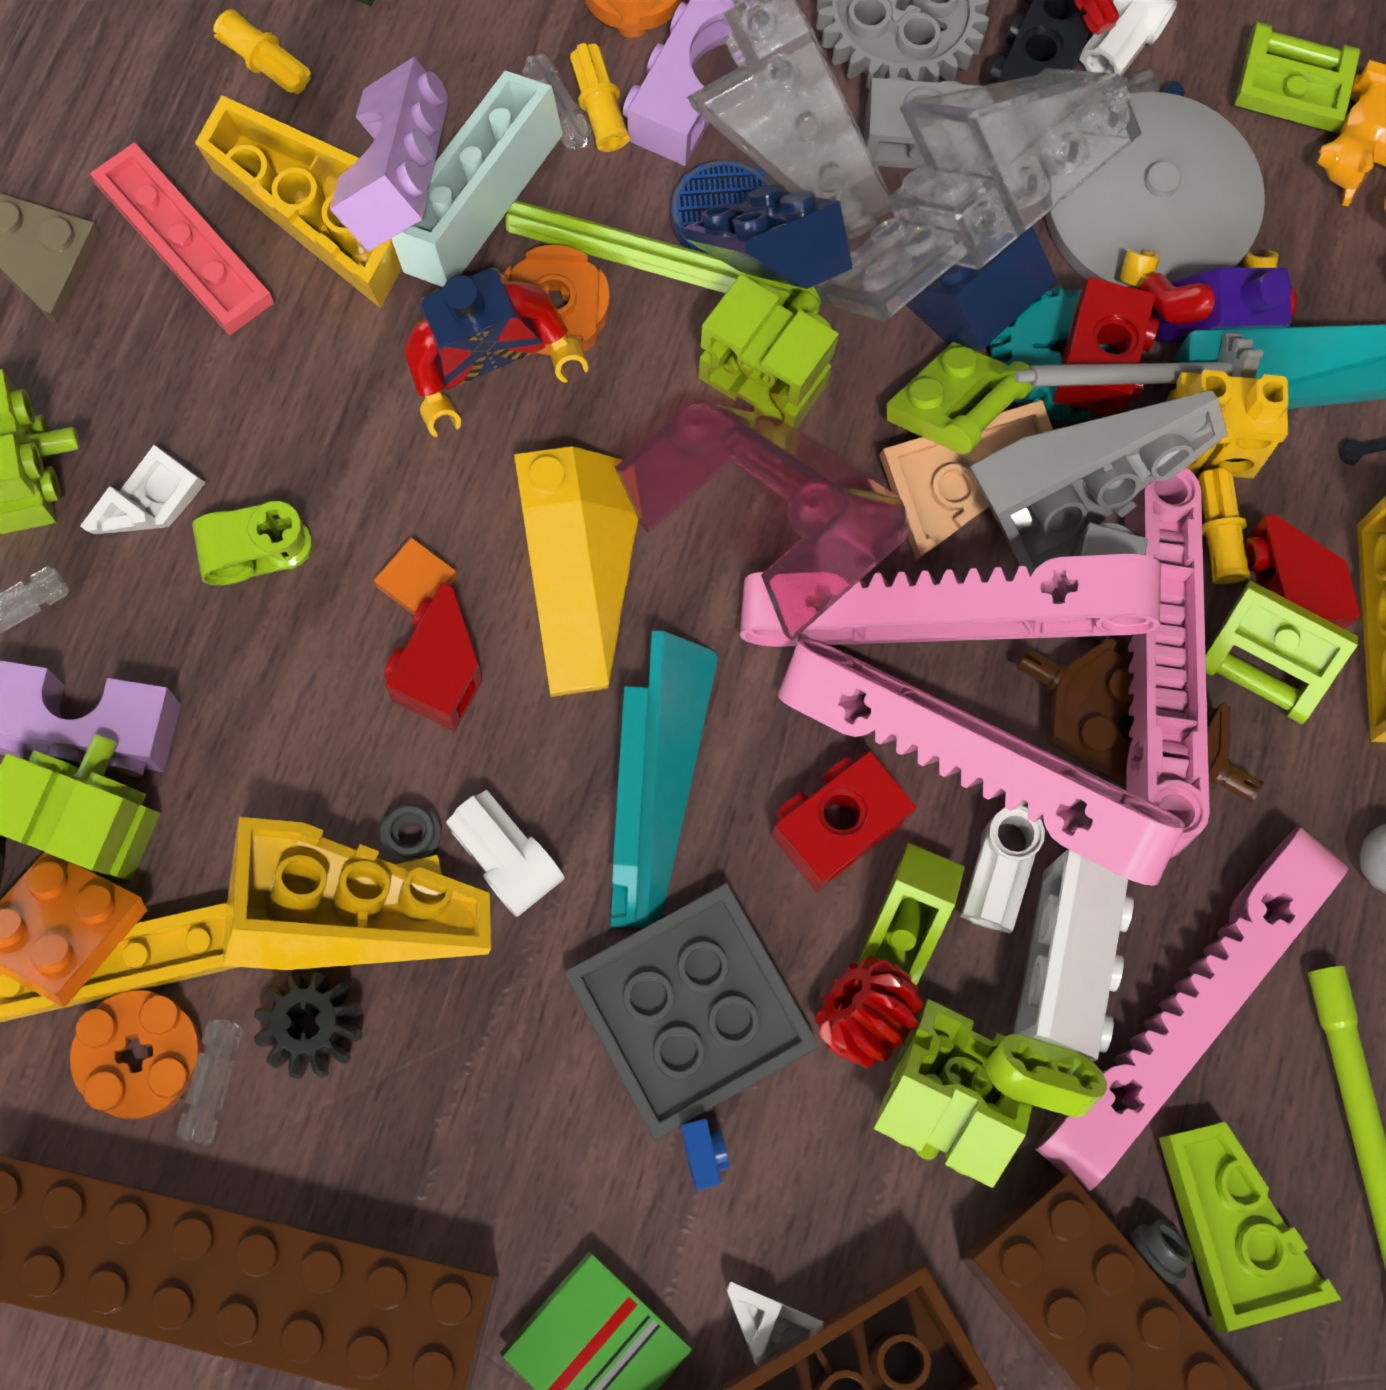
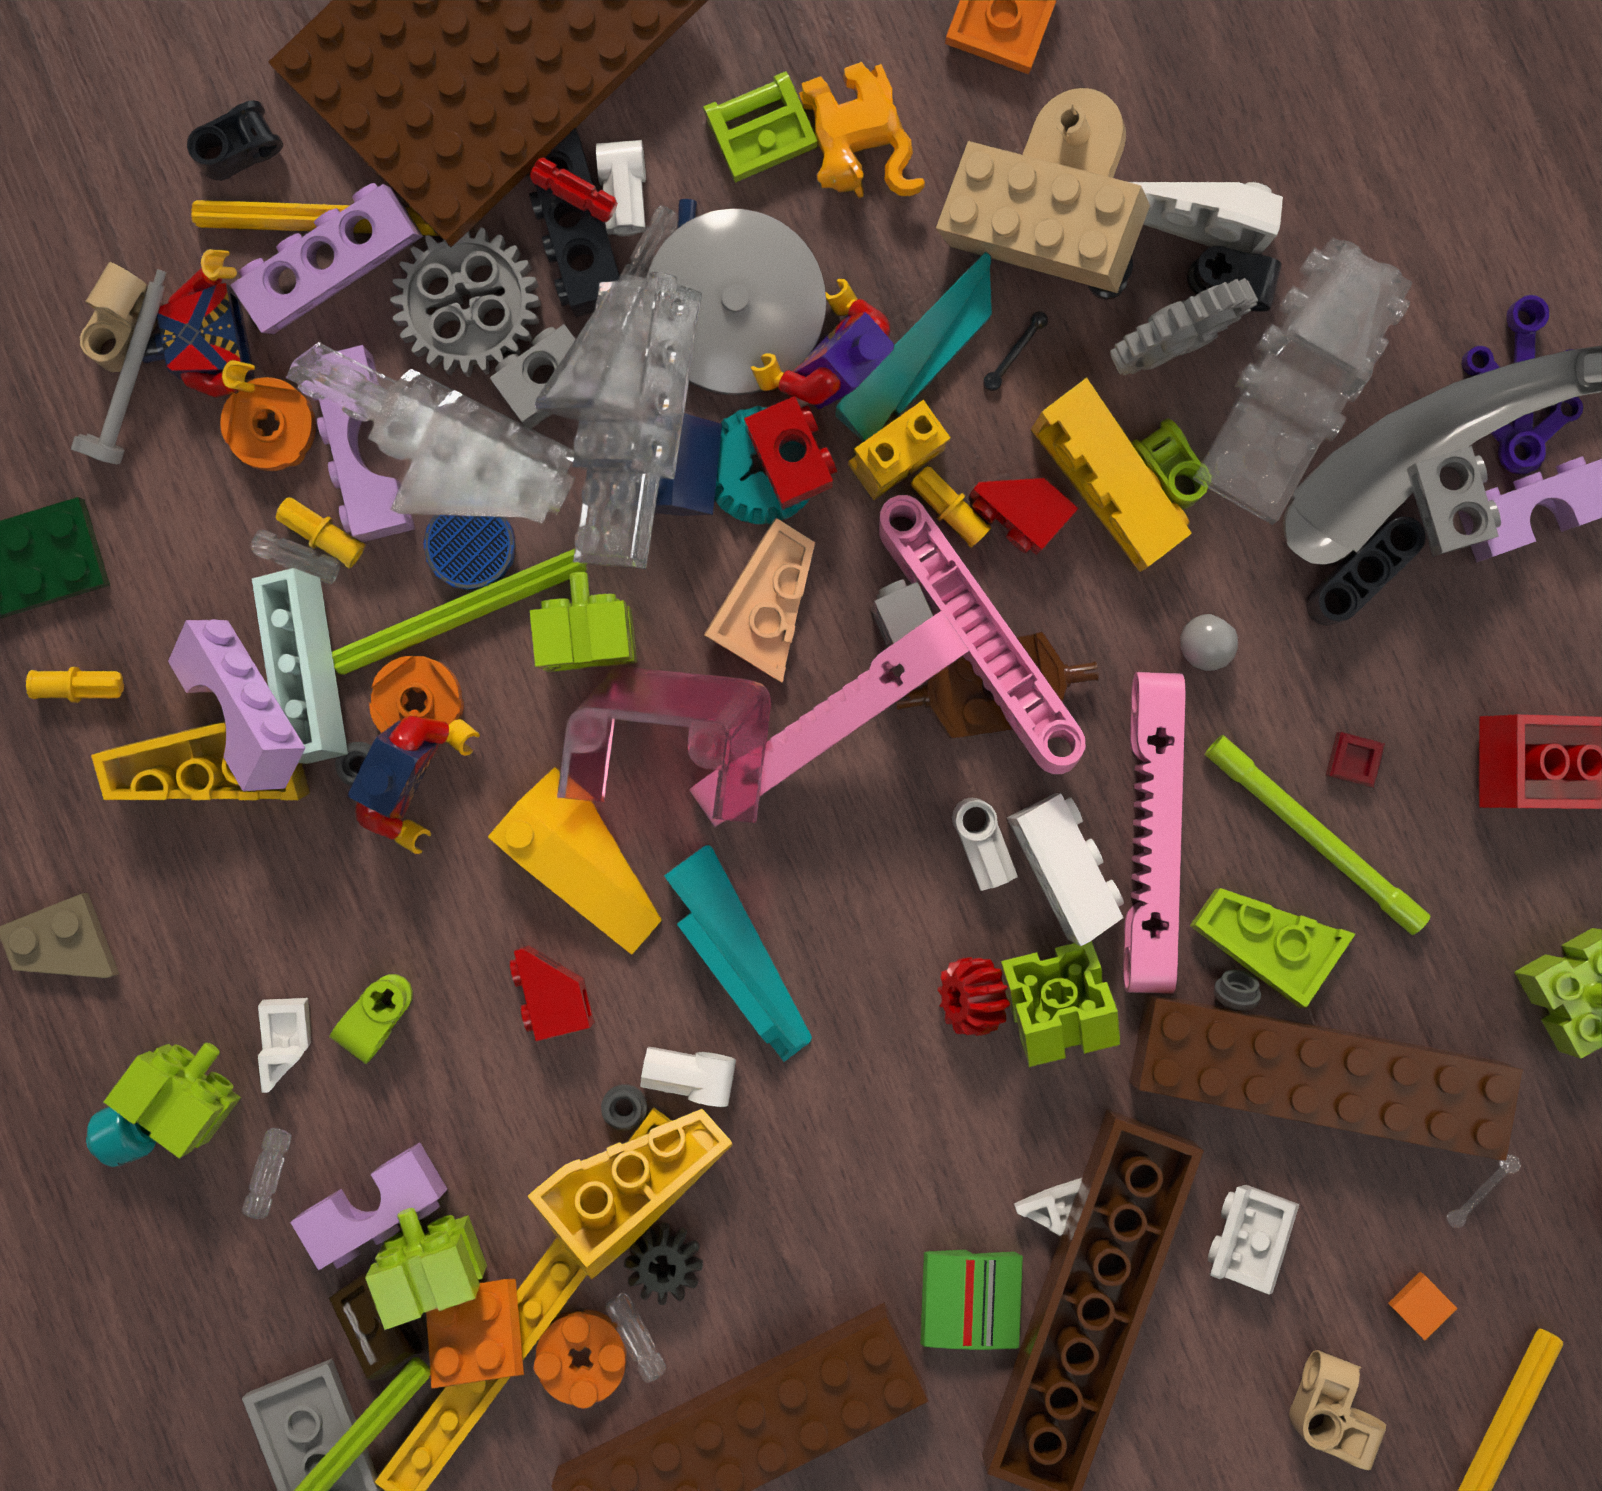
camera: 35 degrees left, 15 degrees up
(182, 238) = (145, 857): coral plate -> none
(413, 576) = (489, 952): orange tile -> none
(691, 1011) = (871, 1075): dark grey plate -> none
(704, 1154) = (944, 1149): blue plate -> none
(777, 236) = (527, 563): dark blue slope -> none
(826, 852) = (873, 919): red brick -> none
(914, 911) = (952, 914): lime slope -> none
(947, 387) = (712, 559): lime plate -> none
(1045, 1075) = (1106, 965): lime beam -> none
(1080, 474) = (833, 582): light grey wedge -> none
(1125, 829) = (1039, 786): bright pink gear -> none
(1234, 358) = (882, 408): light grey piece -> none
(1286, 639) = (1044, 570): lime plate -> none

